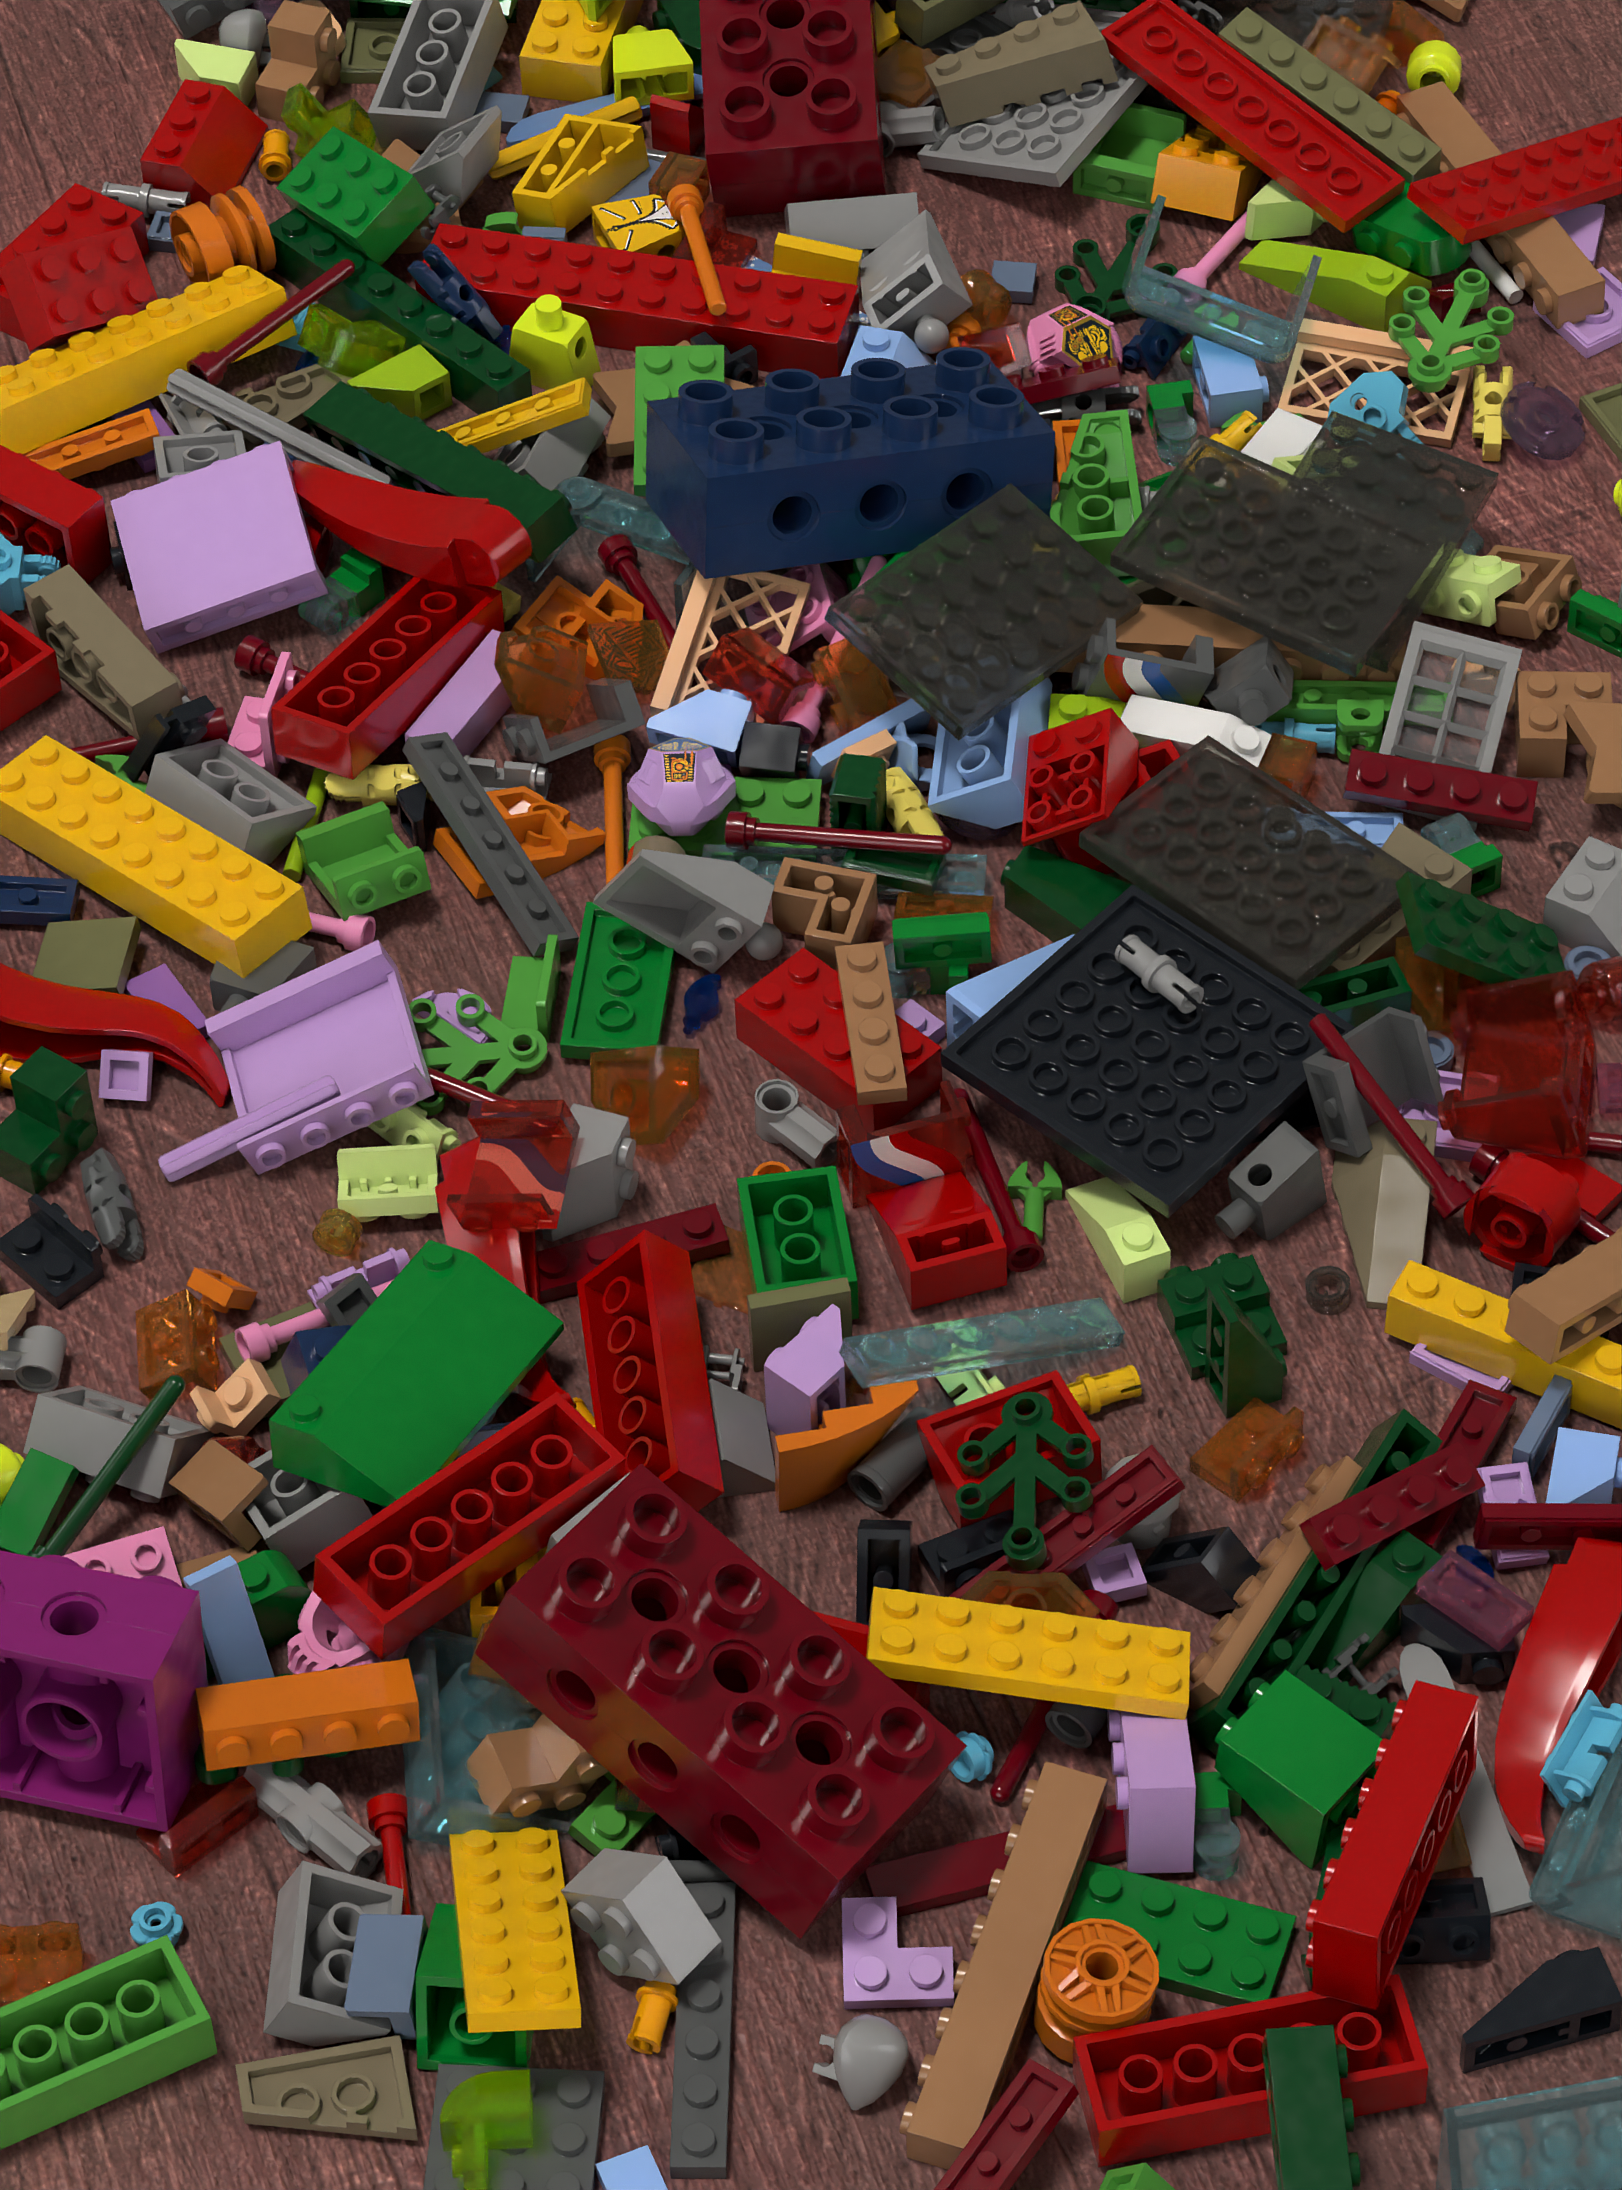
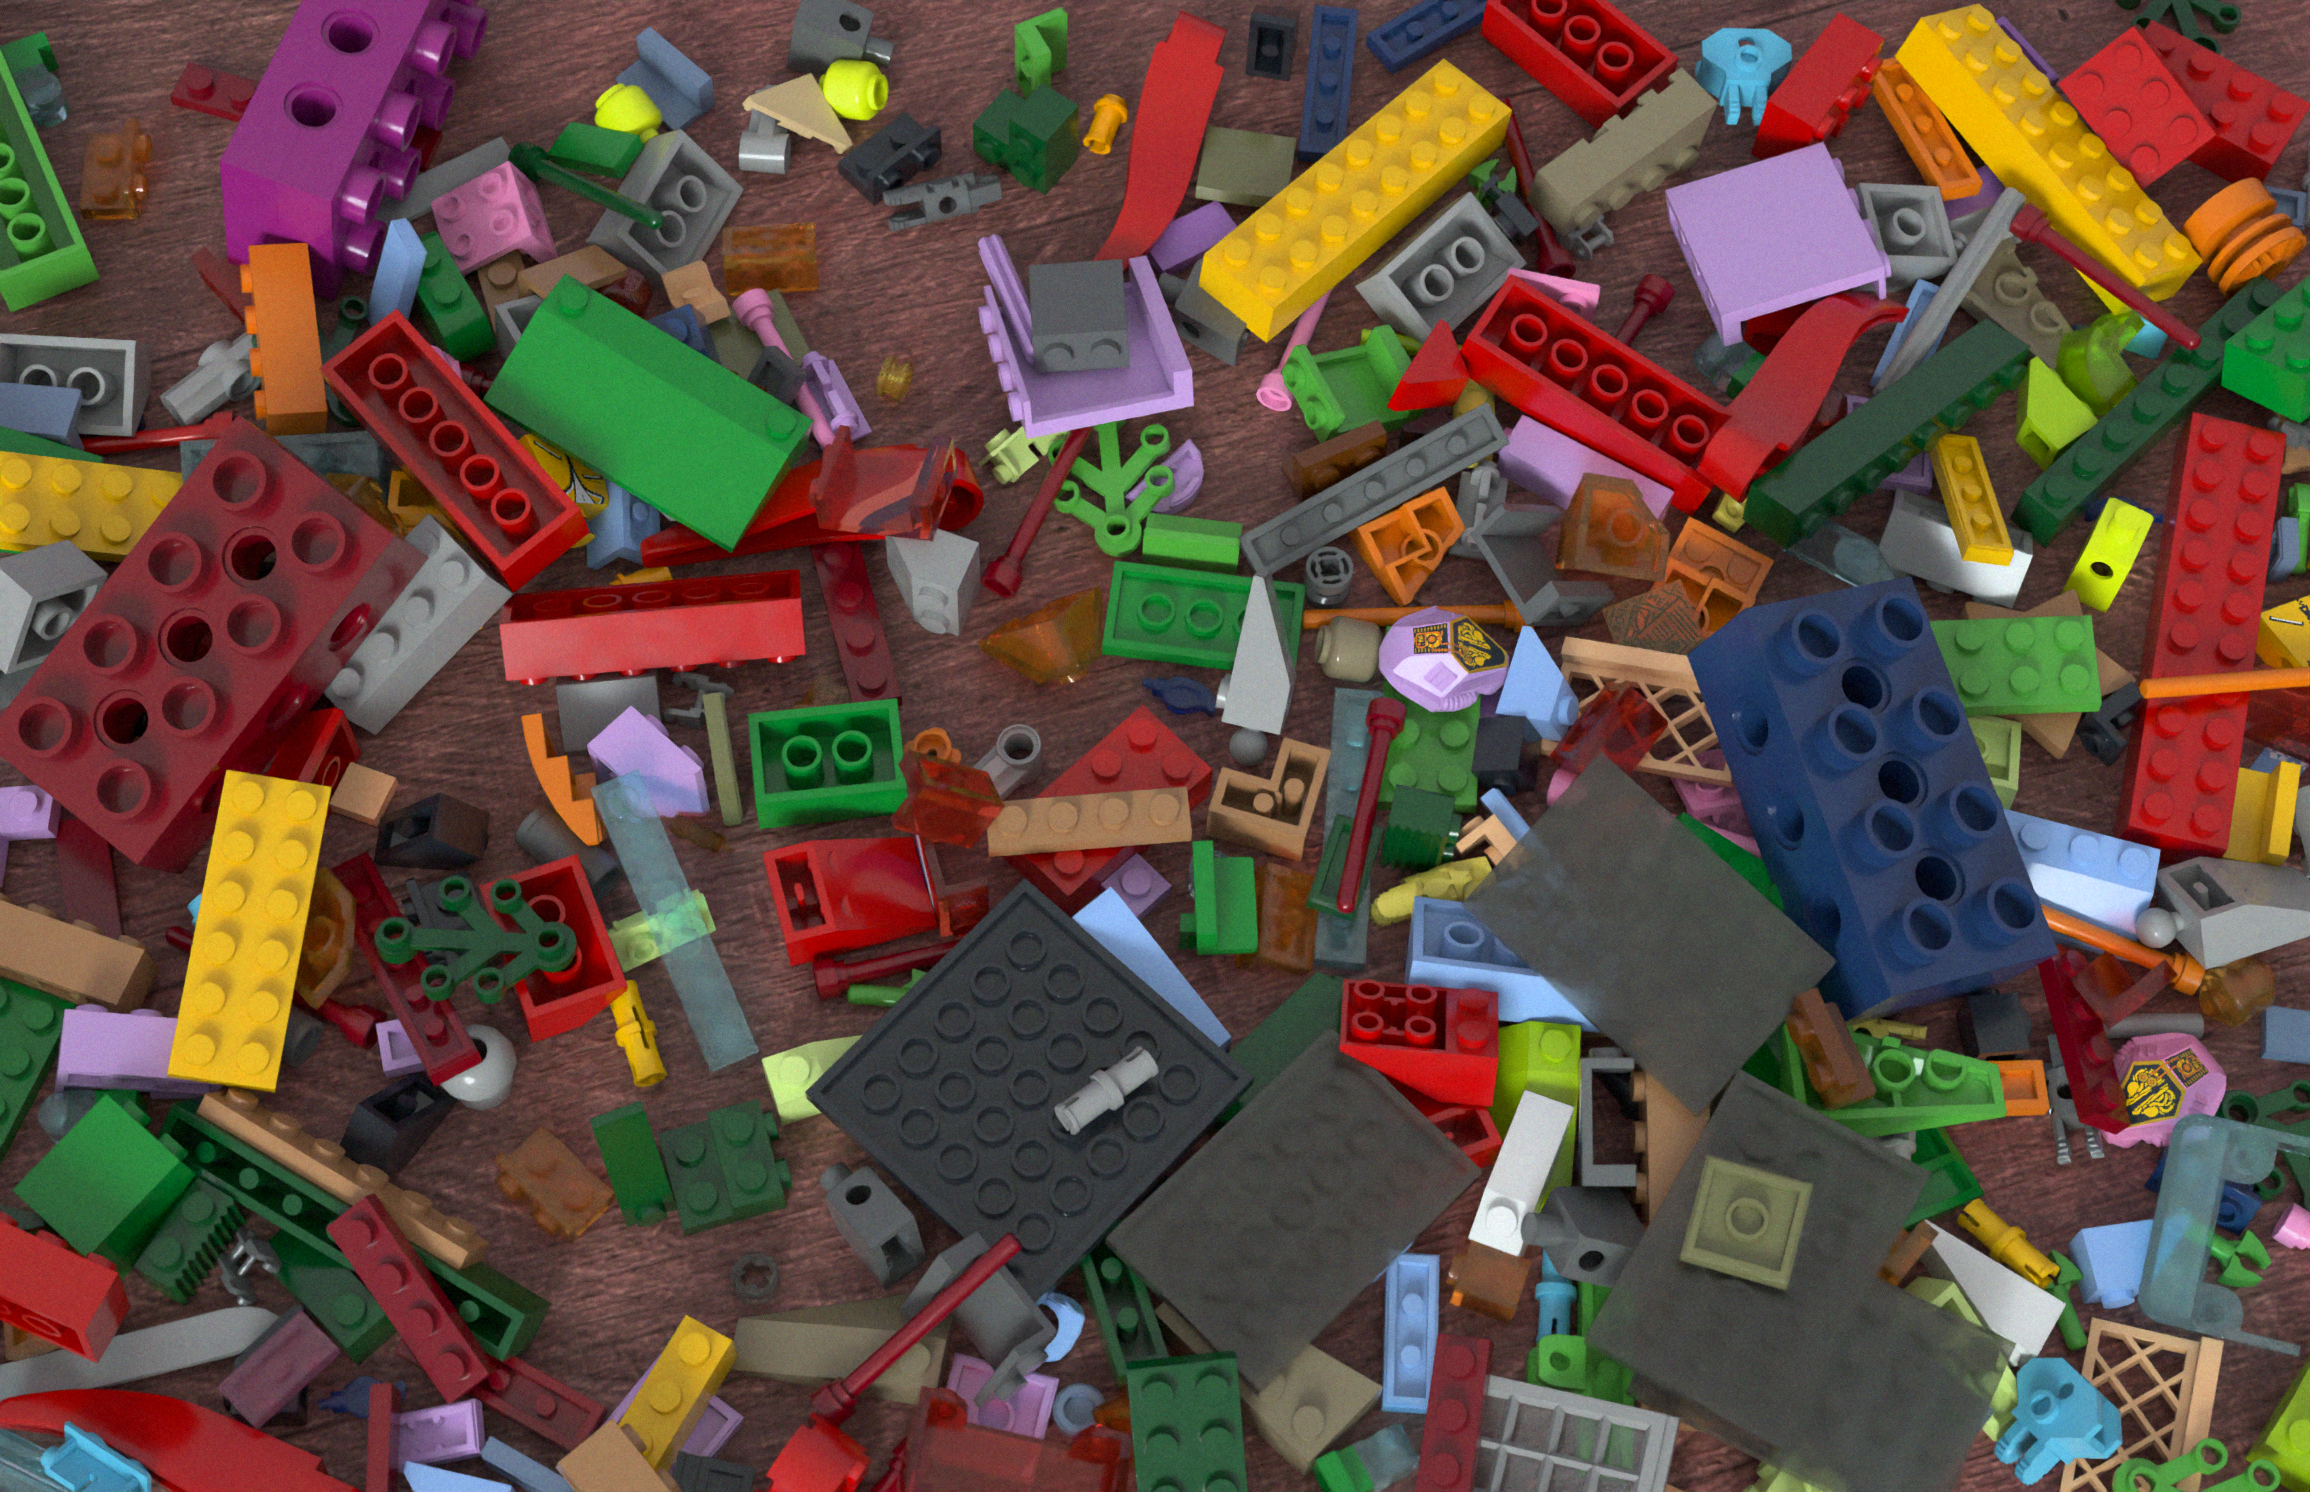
camera: 85 degrees right, 15 degrees up
(125, 1074) = (1098, 204): lavender plate -> none
(160, 1911) = (146, 272): medium azure plate -> none
(221, 1290) = (831, 286): orange plate -> none
(286, 1049) = (1078, 316): none -> dark grey panel
(360, 787) = (1434, 375): none -> red slope
(388, 1181) = (947, 409): yellowish green bracket -> none
(454, 293) = (2161, 471): dark blue hinge -> none
(454, 885) = (1335, 459): none -> reddish brown bracket
(576, 882) = (1332, 587): none -> dark grey wheel
(861, 1090) = (946, 800): none -> clear red panel
(1092, 497) = (1828, 1051): none -> reddish brown bracket
(1171, 419) = (2054, 1192): leg -> none
(1251, 550) = (1746, 1222): none -> olive tile

